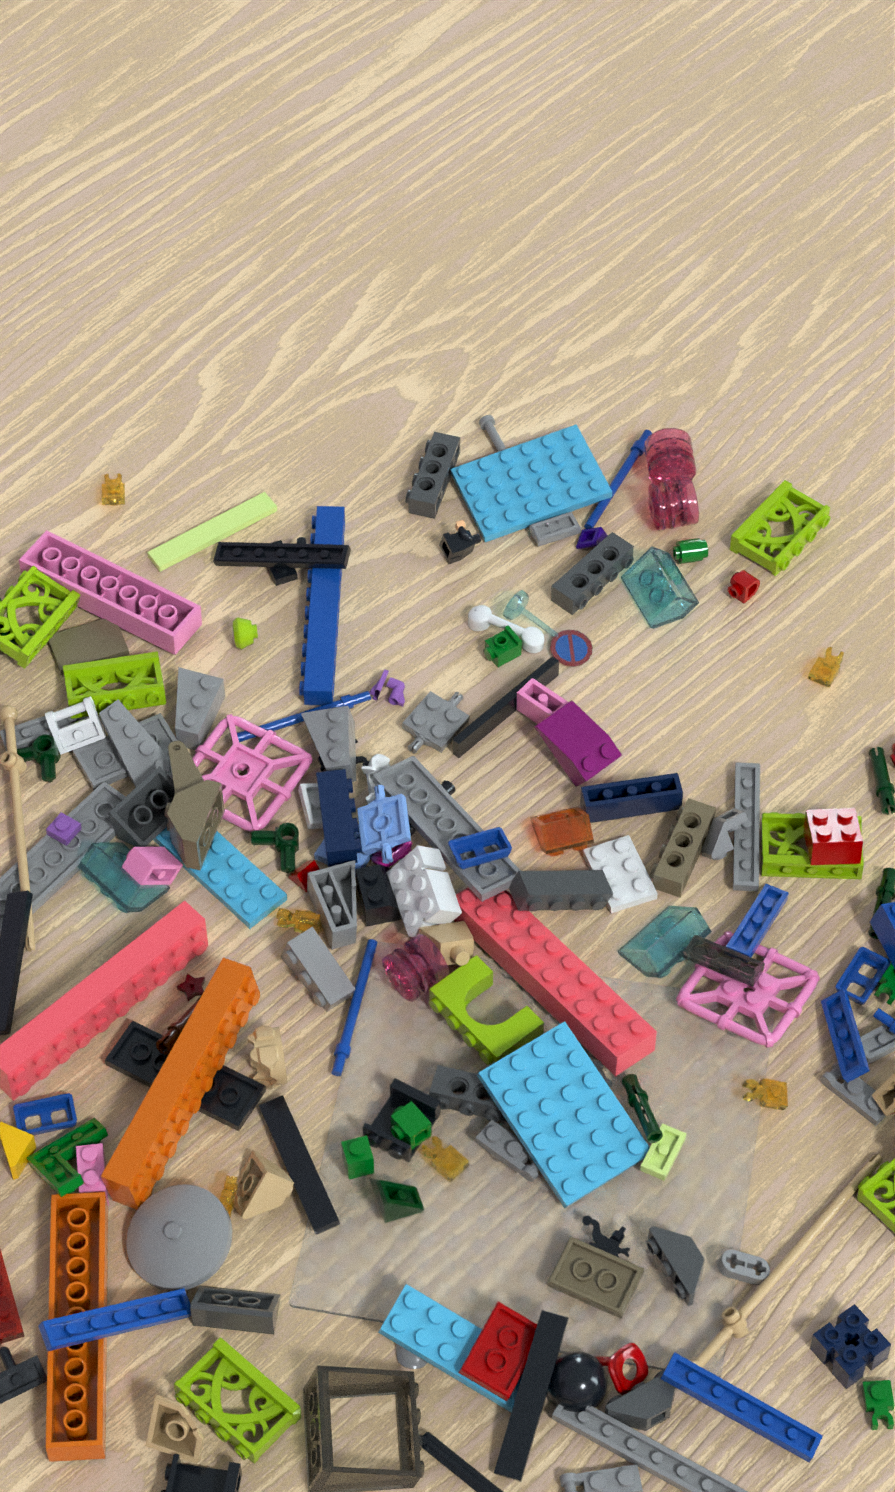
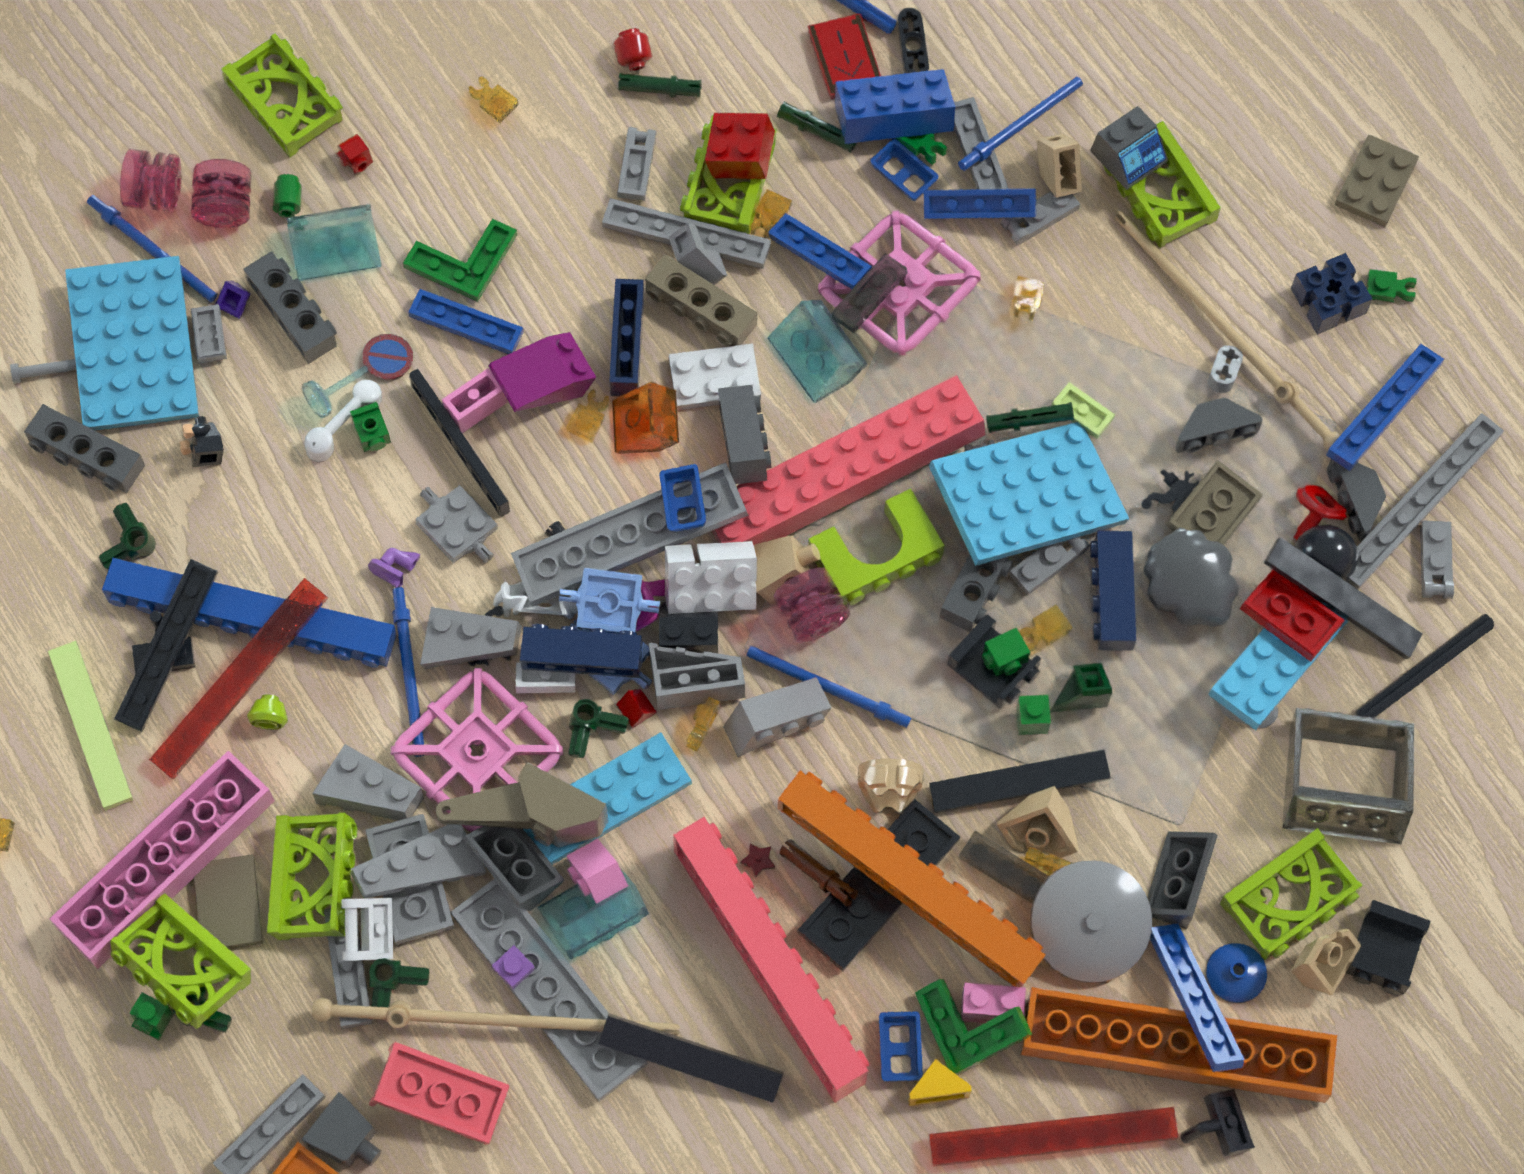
camera: 80 degrees left, 15 degrees up
(160, 1382) = (1229, 985): none -> blue dish
(221, 1161) = (1002, 866): none -> clear smoke plate
(265, 604) = (238, 678): none -> clear red plate
(366, 520) = (131, 531): none -> dark green axle
(492, 1204) = (1114, 590): none -> dark blue brick
(517, 1260) = (1191, 578): none -> dark grey piece
(554, 791) = (588, 420): none -> clear yellow plate
(615, 690) = (465, 322): none -> blue plate
(658, 687) = (464, 278): none -> green plate
(791, 883) = (770, 211): none -> clear yellow plate
(802, 778) = (636, 164): none -> light grey plate

